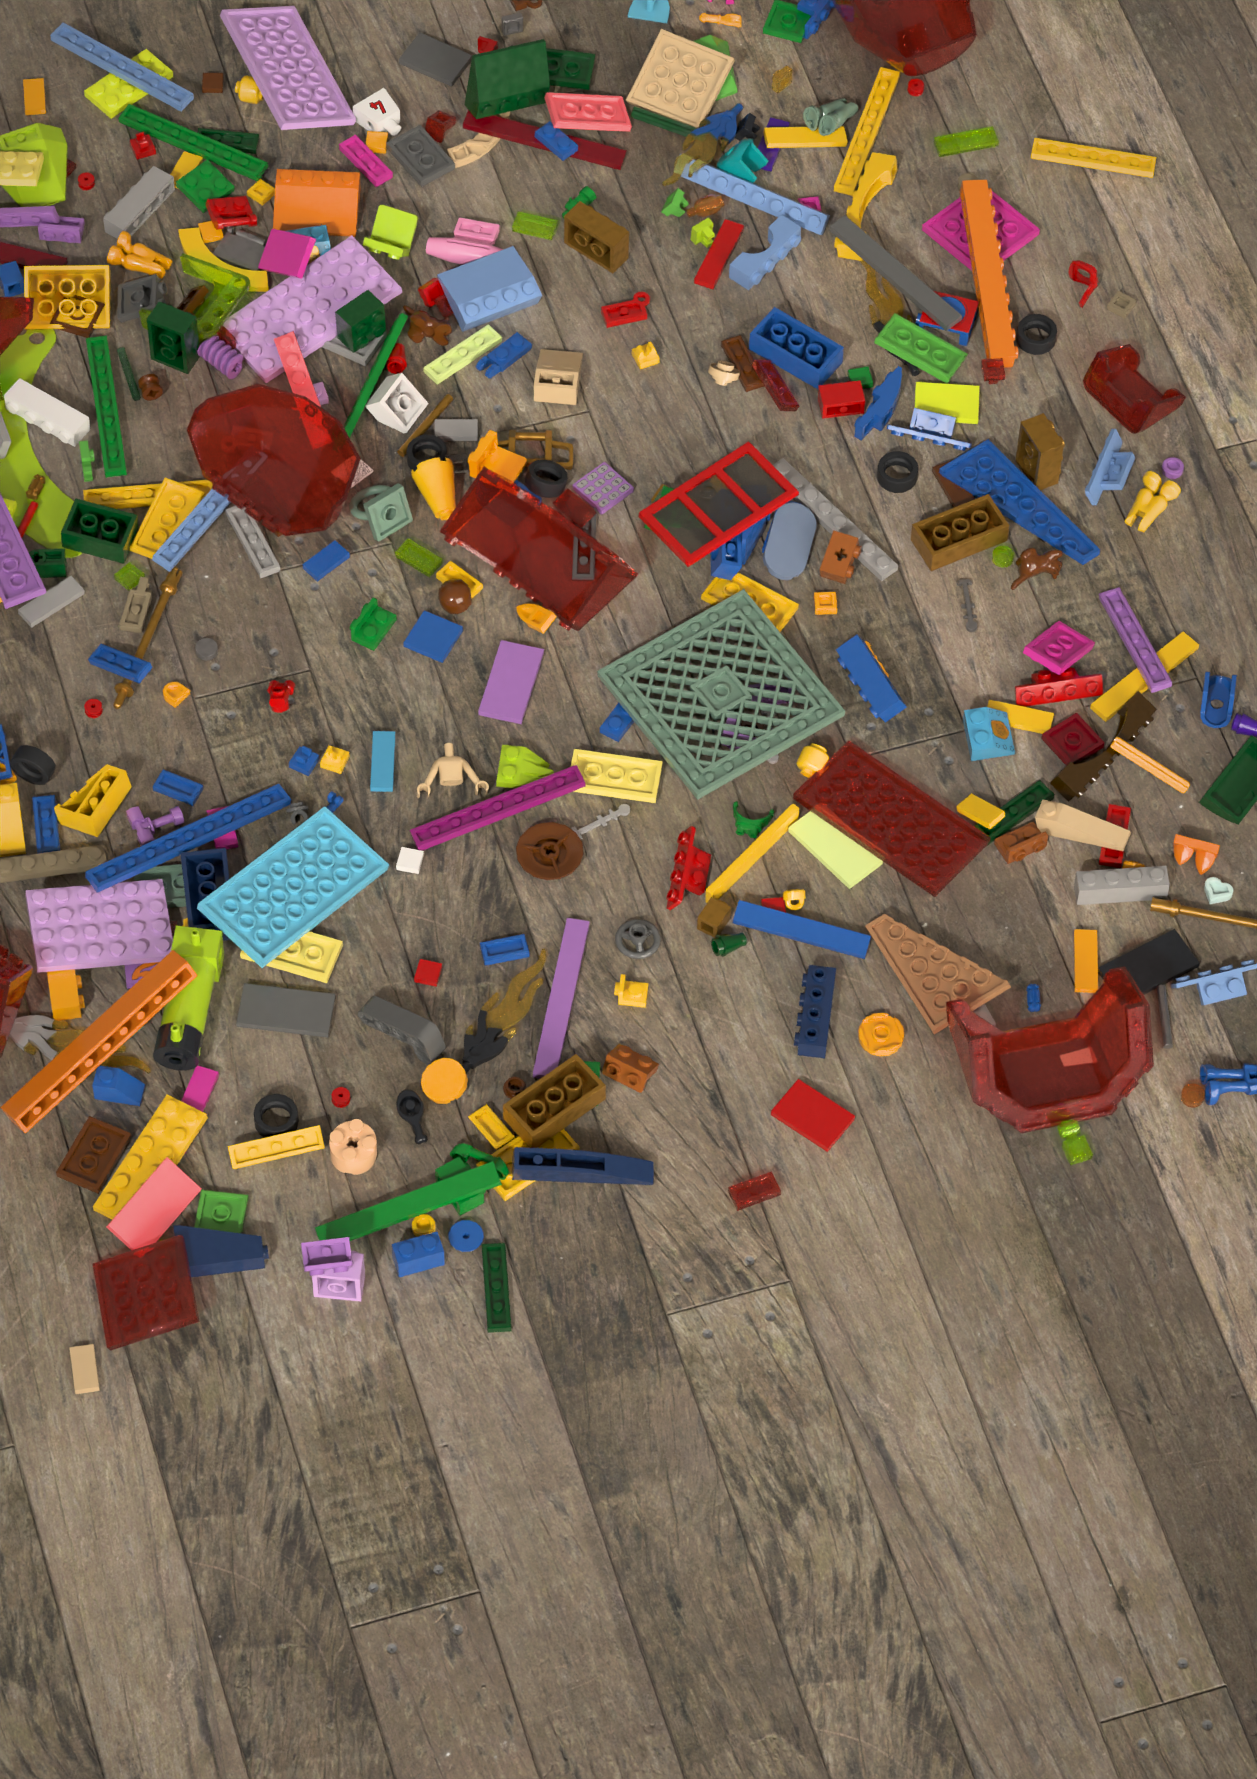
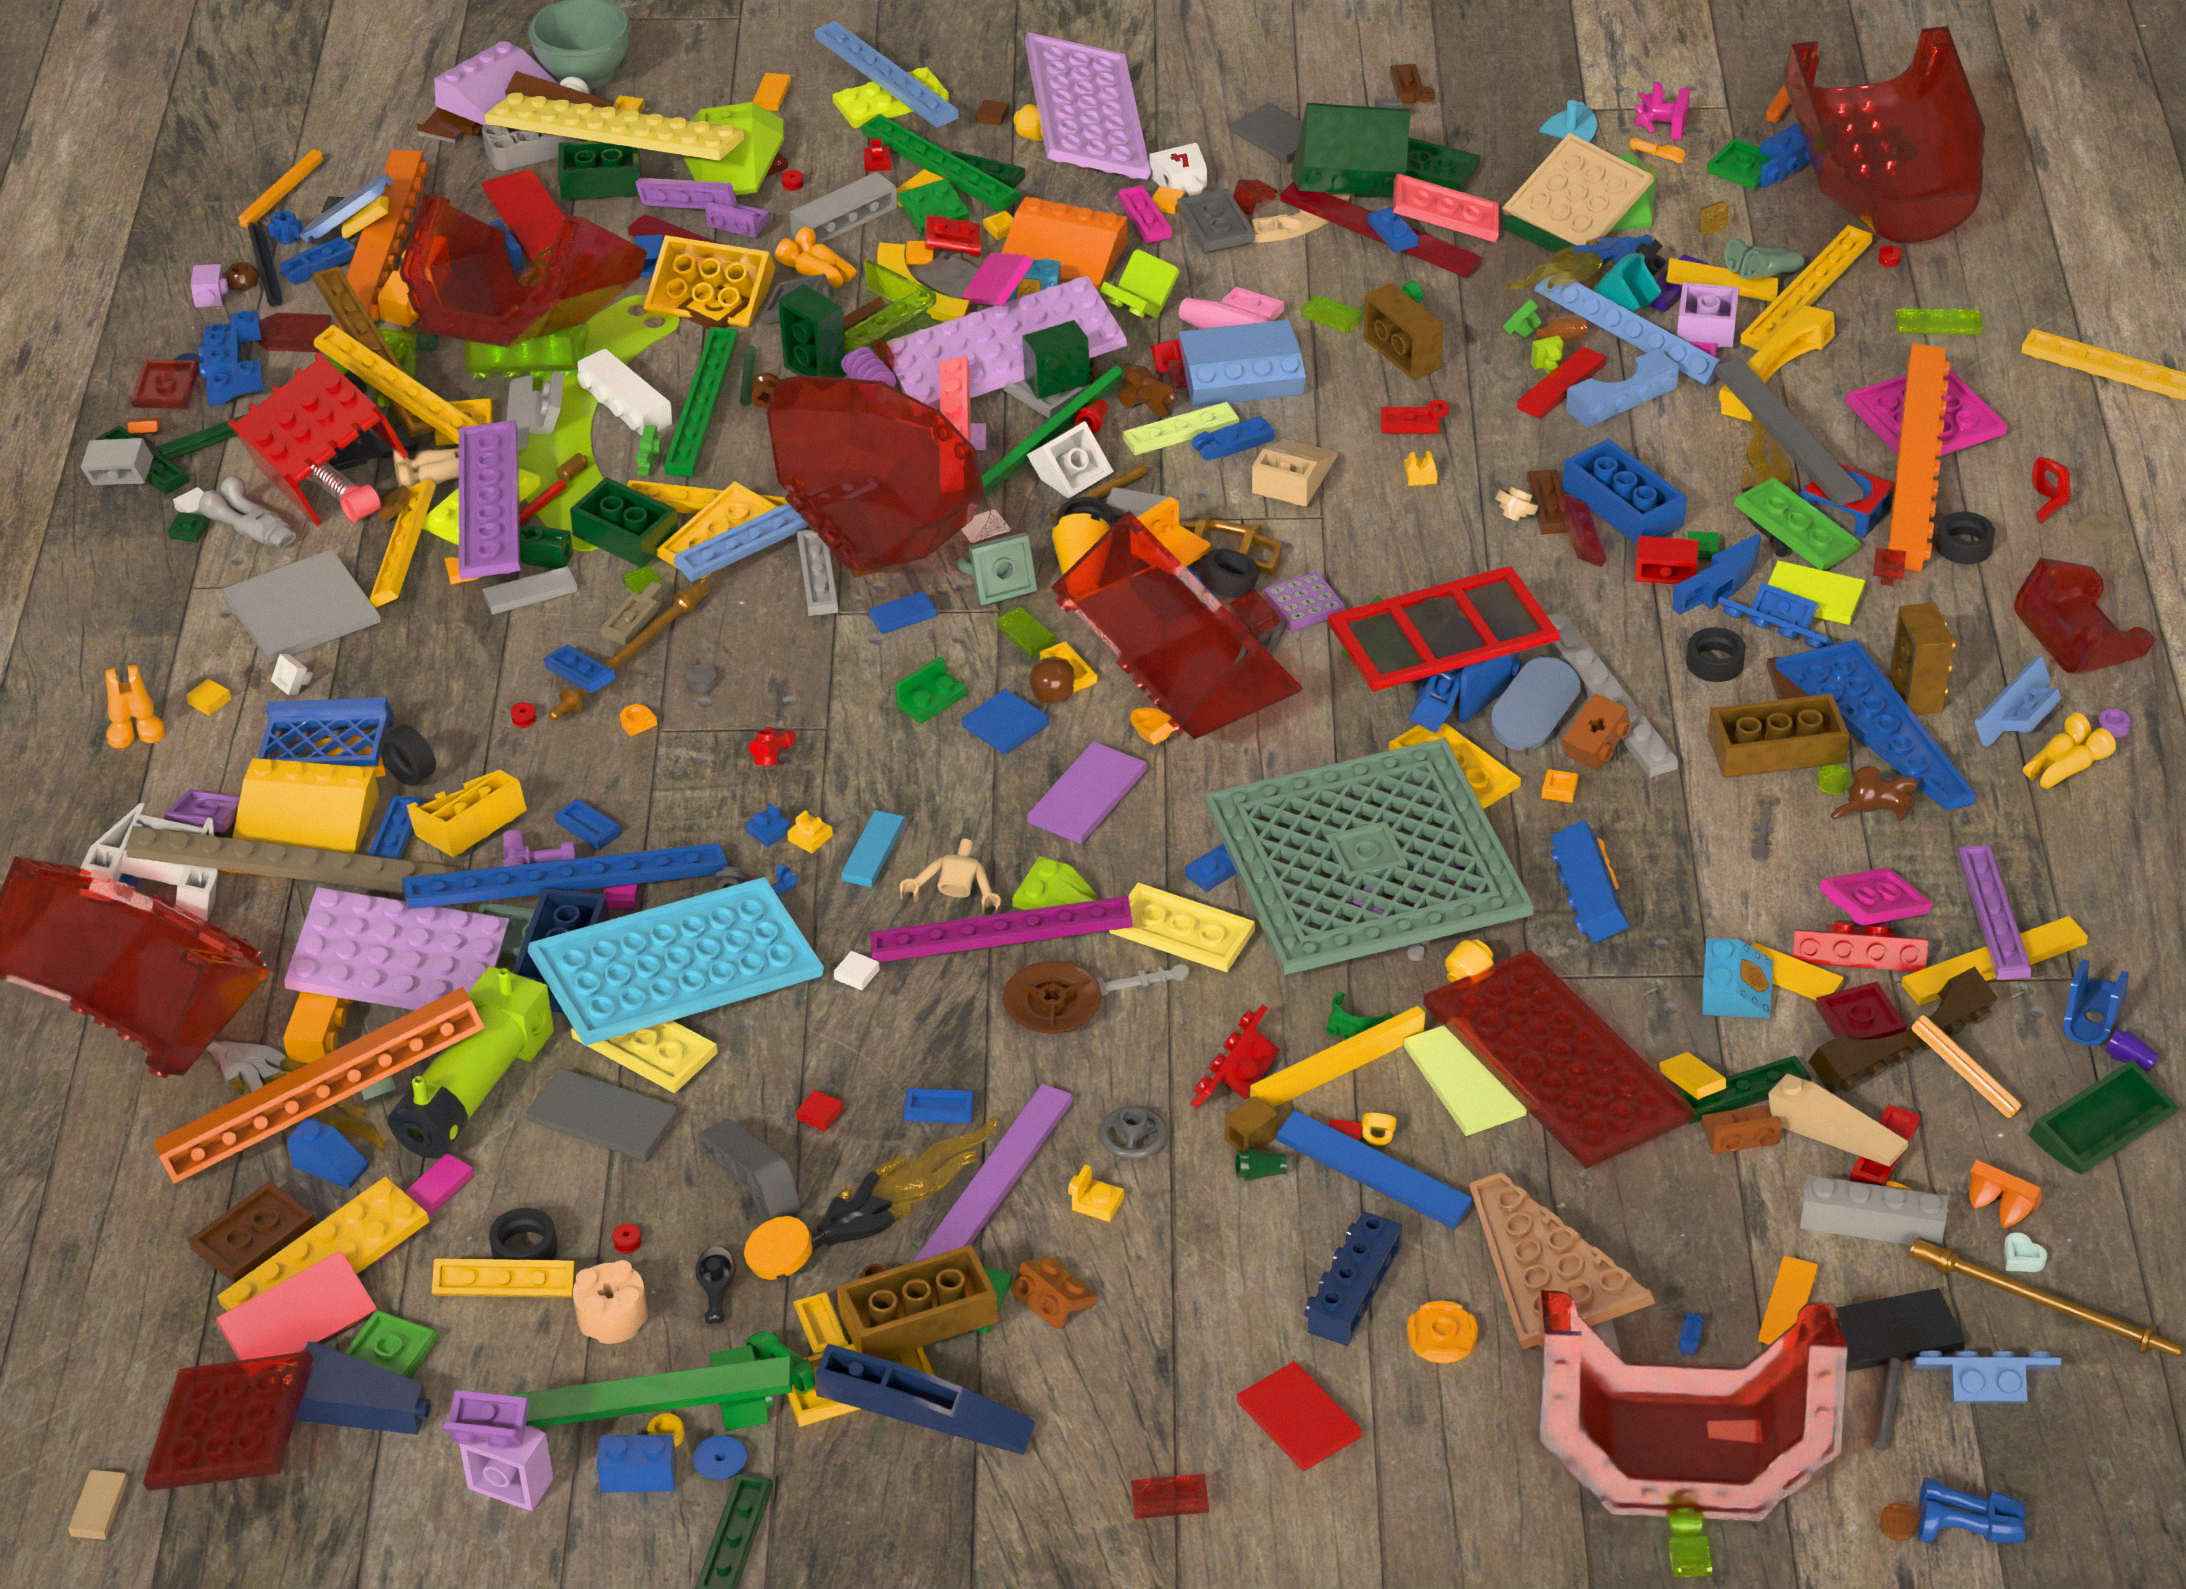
camera: 20 degrees right, 15 degrees down
(806, 174) = (1708, 314): none -> lavender brick

